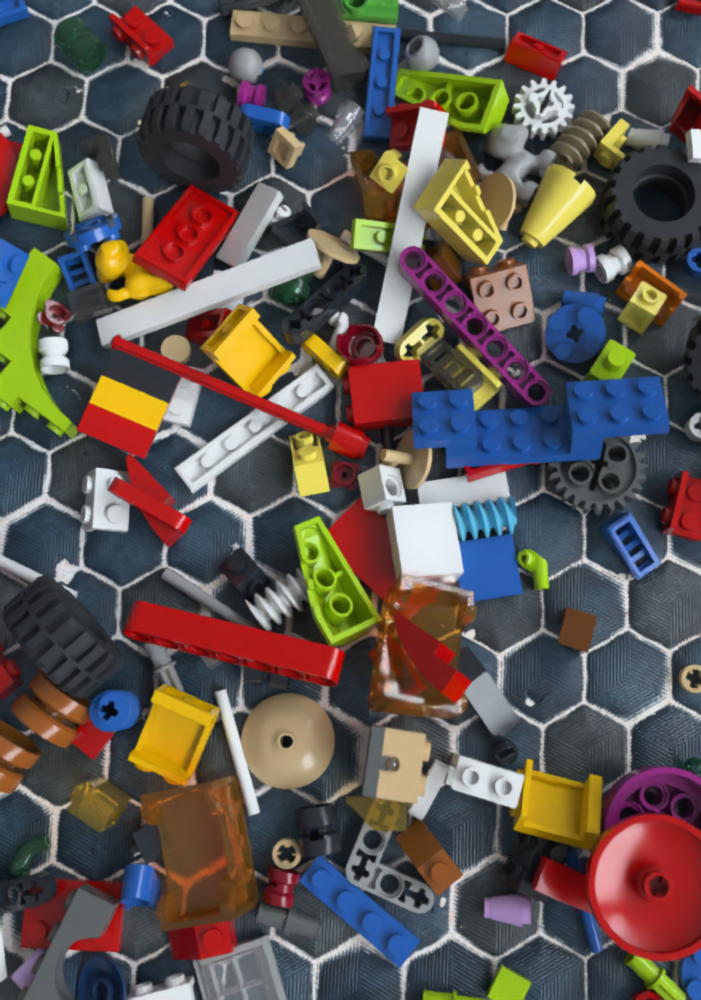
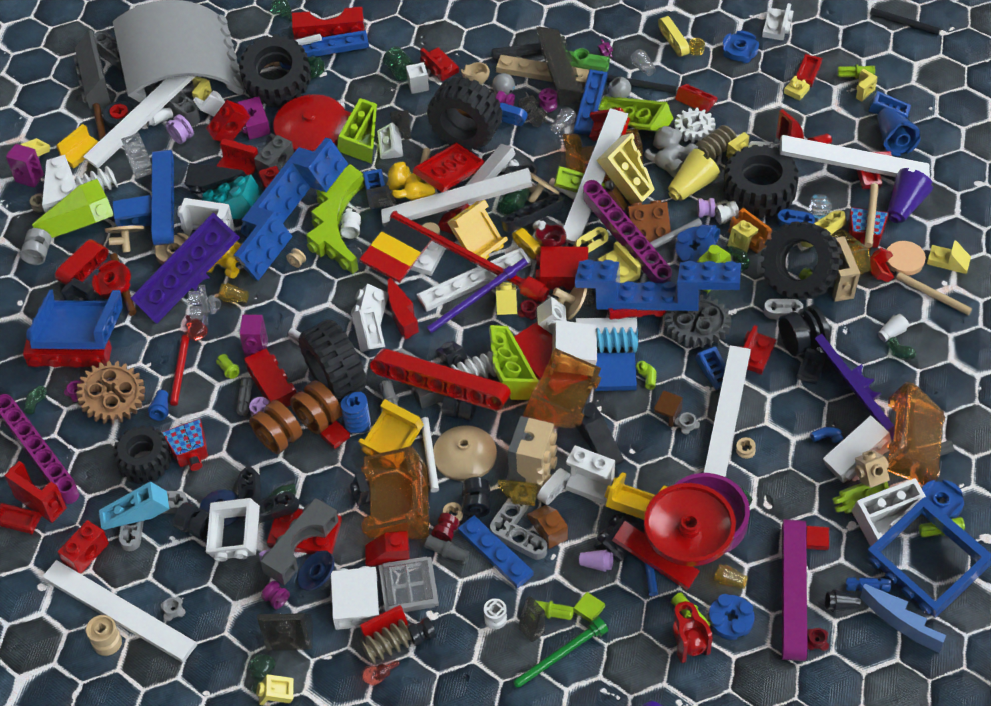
camera: 10 degrees right, 25 degrees down
(57, 309) = (354, 204): dark red plate -> none
(92, 231) = (382, 161): blue plate -> none
(98, 803) = (336, 462): clear yellow brick -> none
(111, 547) = (368, 329): none -> white slope
(112, 68) = (417, 78): none -> white panel
(140, 887) = (352, 512): blue piece -> none
(149, 505) = (399, 302): red beam -> none
(200, 50) = (476, 71): none -> tan hair
(285, 147) = (521, 129): tan tile -> none
(307, 425) = (508, 273): none -> dark purple bar
(389, 170) = (585, 142): light yellow bracket -> none
(431, 659) = (566, 389): red slope -> none
(469, 377) = (610, 253): clear smoke slope -> none
(500, 198) = (655, 166): tan shield -> none
(537, 317) = (672, 235): none -> light grey bar
(613, 647) = (687, 418): none -> light grey plate
(643, 340) = (740, 255): none -> clear green arm
(663, 644) = (727, 411): none -> white tile
(681, 22) = (796, 88): none -> light yellow tile

